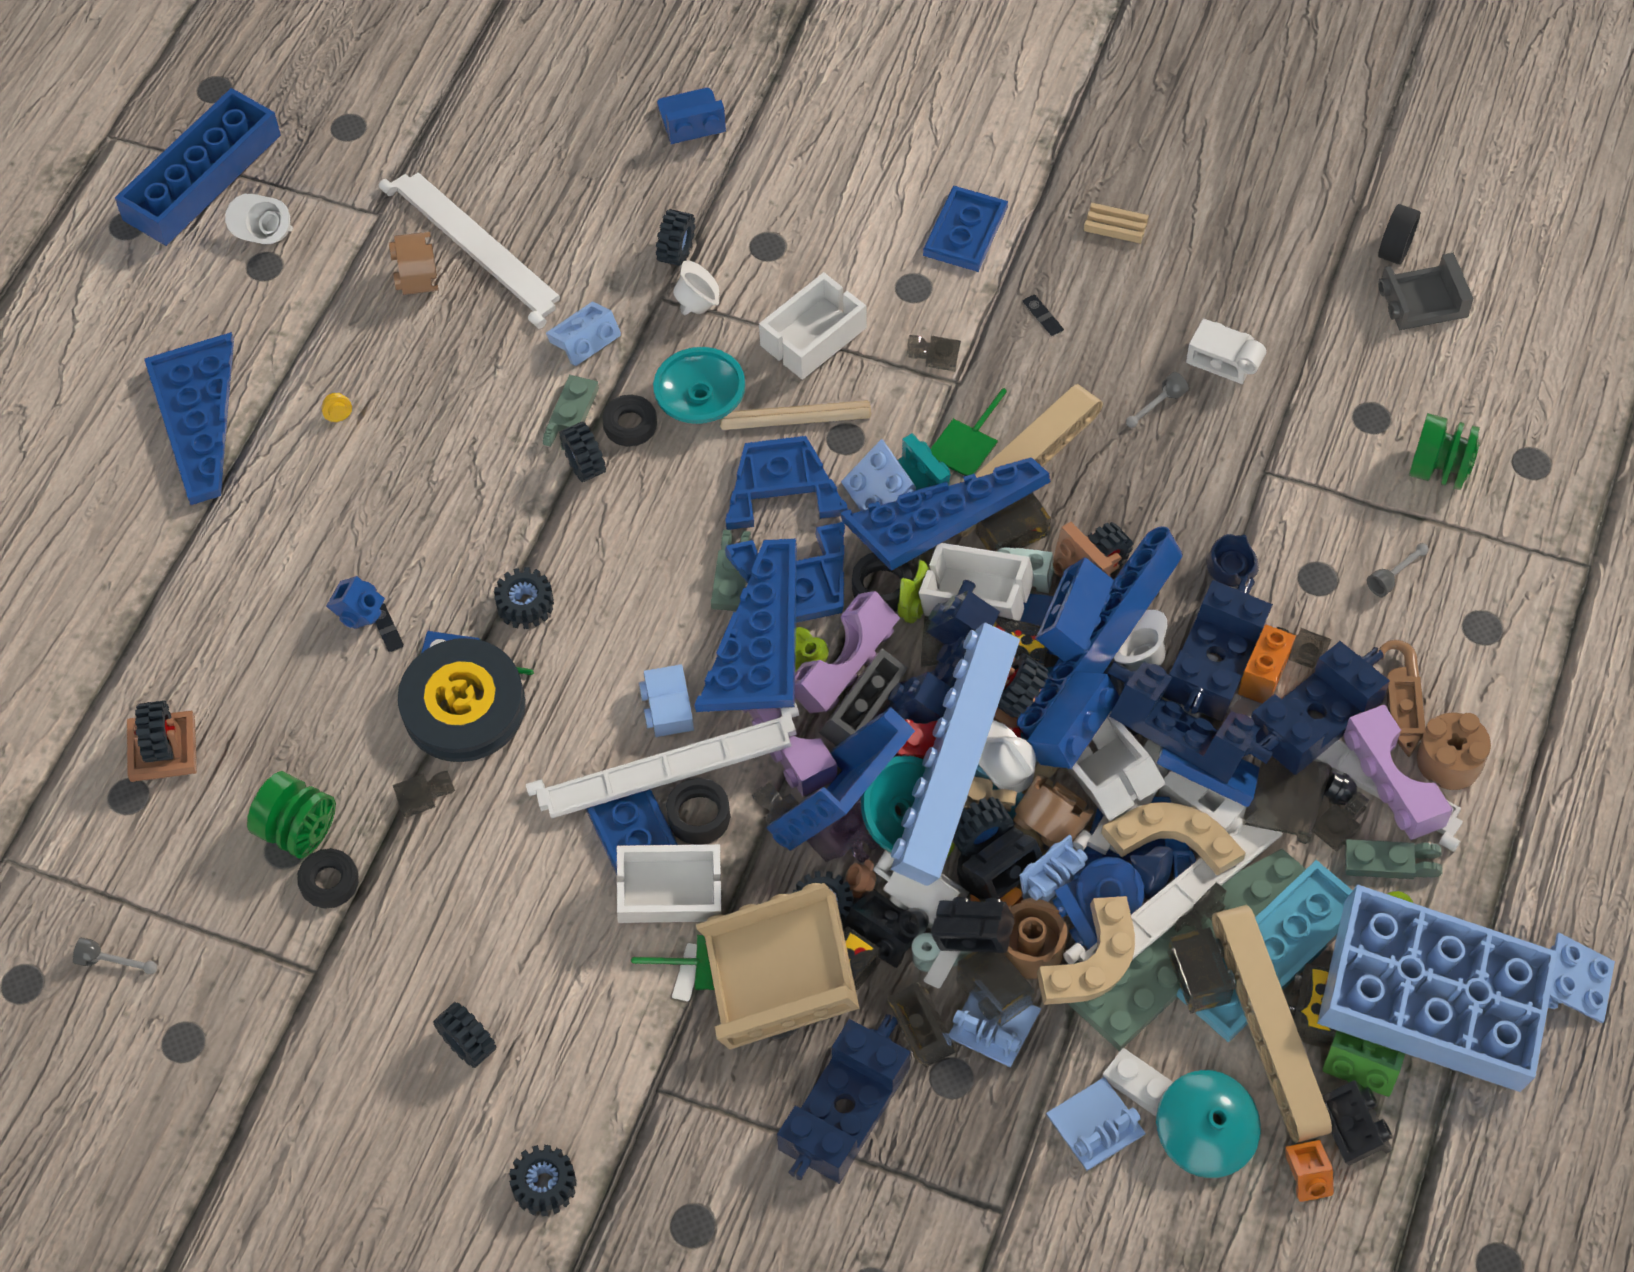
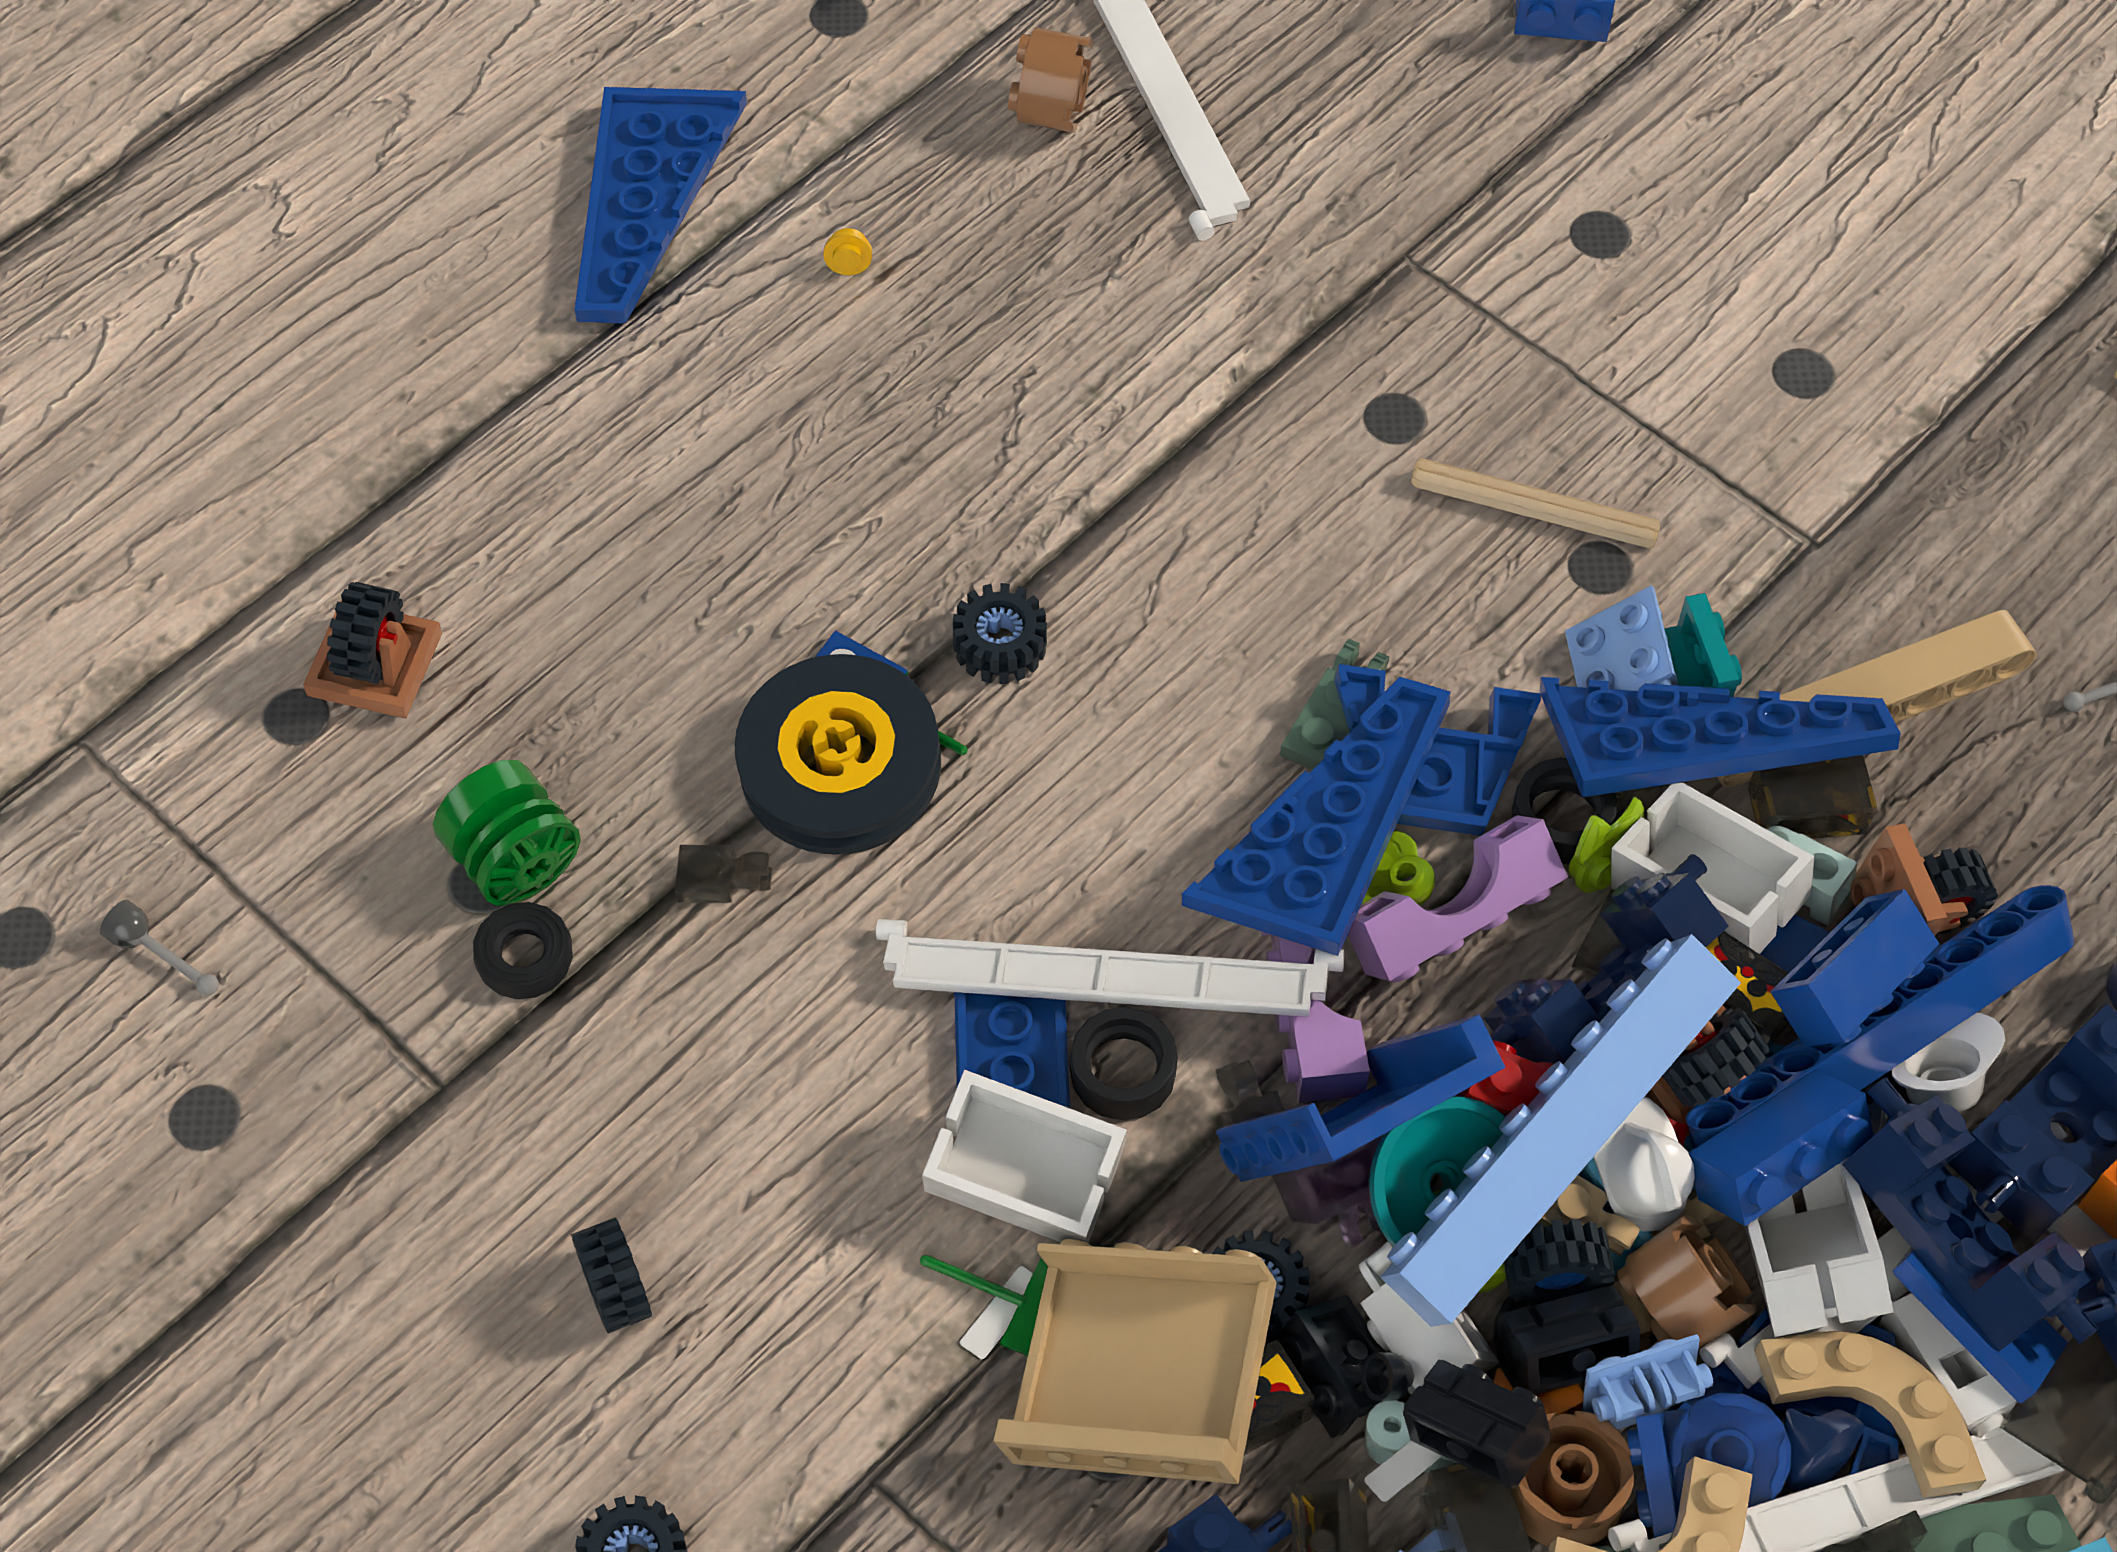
camera: 20 degrees right, 0 degrees up
(356, 602) = (746, 549): blue brick -> none
(388, 630) = (779, 603): black sticker -> none
(571, 406) = (1193, 378): sand green hinge -> none
(582, 451) = (1181, 443): black bush -> none
(585, 332) = (1264, 268): light blue bracket -> none
(629, 436) = (1276, 448): black tyre -> none
(668, 701) = (1149, 871): light blue brick -> none
(675, 237) = (1460, 171): black bush -> none
(695, 289) = (1460, 259): white piece -> none
(697, 374) = (1405, 388): teal dish -> none
(777, 470) = (1472, 578): blue wing -> none
(812, 325) = (1618, 375): white piece -> none
(861, 878) = (1335, 1270): nougat plate -> none
(864, 697) = (1458, 982): dark grey brick -> none
(939, 353) = (1800, 487): clear smoke plate -> none
(965, 228) = (1923, 310): blue tile -> none
(966, 447) = (1783, 646): green piece -> none
(1043, 315) = (1994, 485): black sticker -> none

